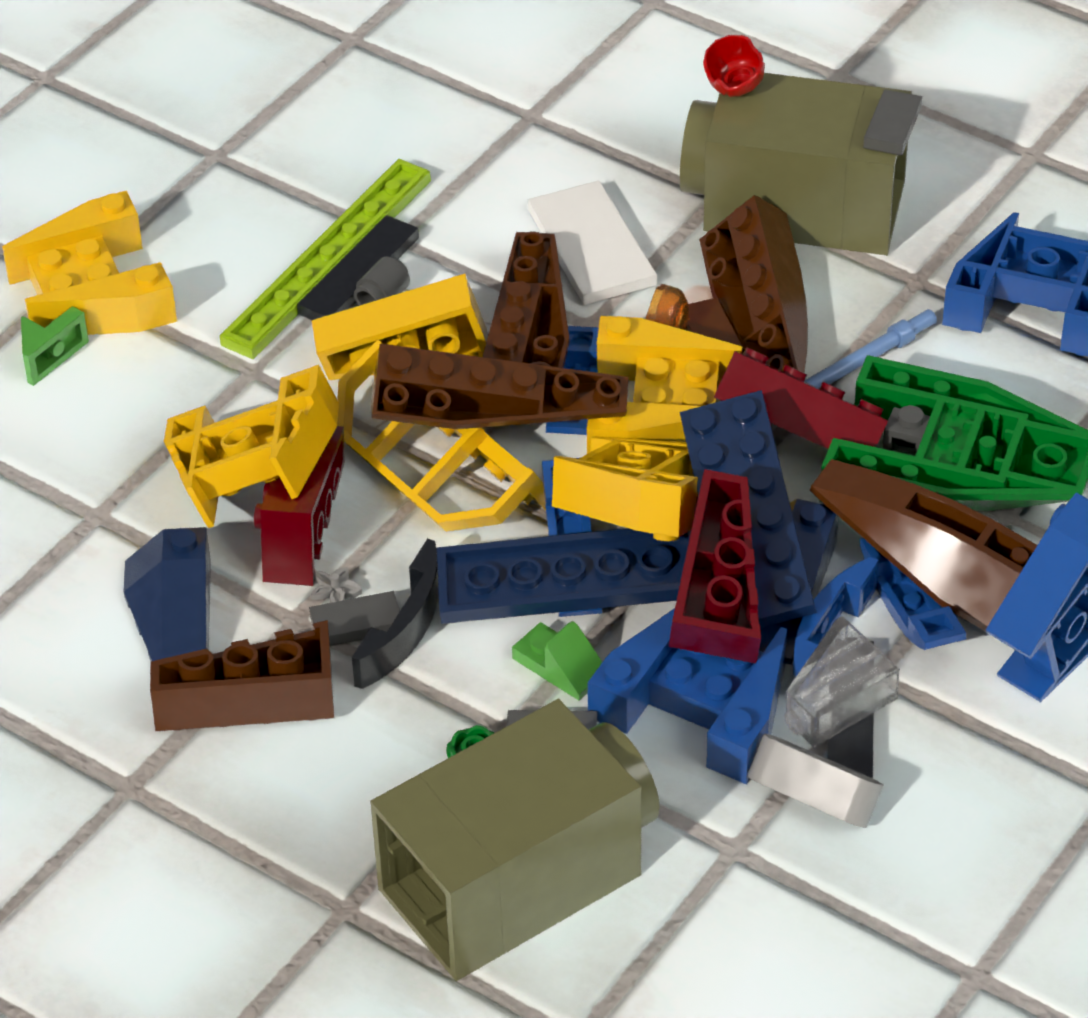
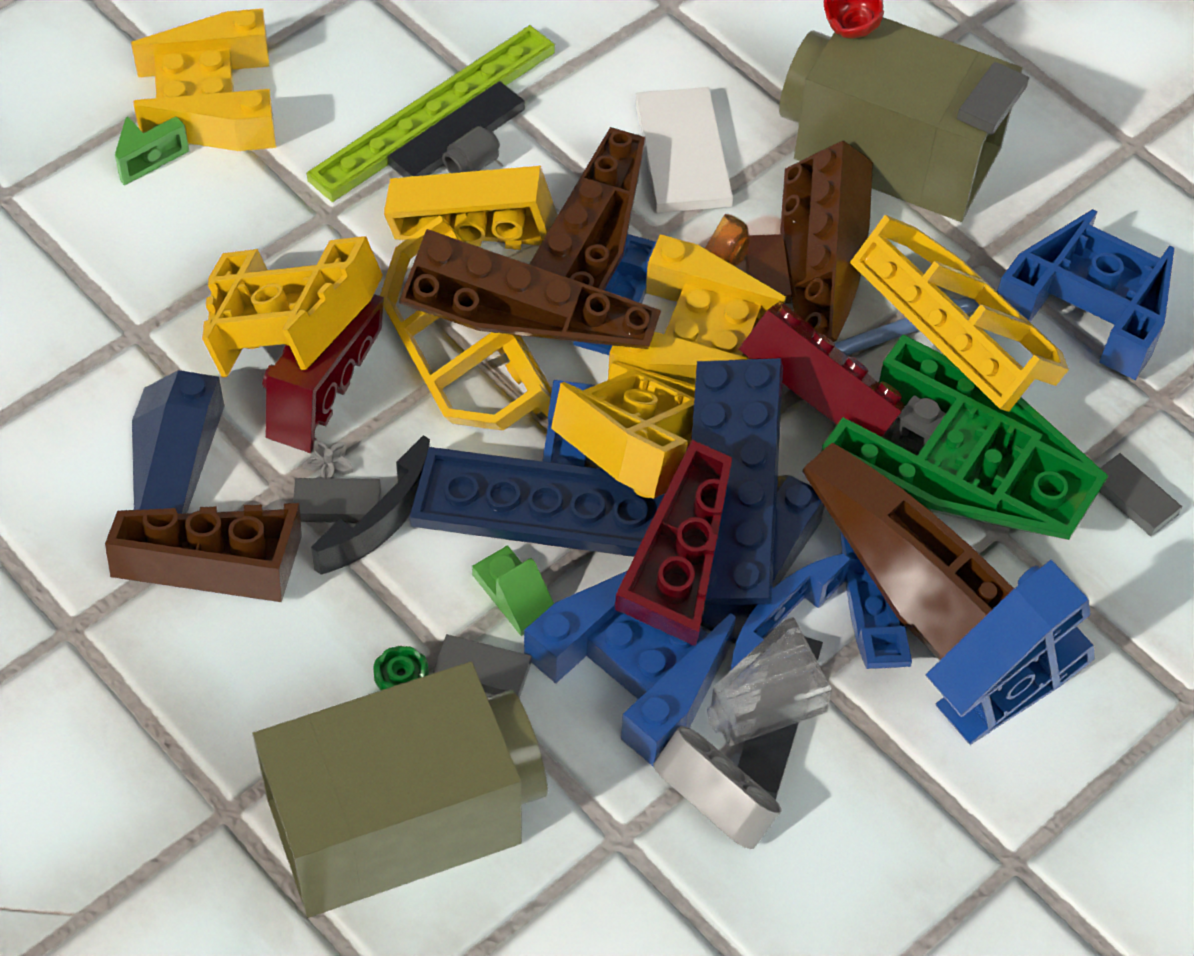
camera: 10 degrees right, 10 degrees up
(905, 334) = (946, 324): none -> yellow plate

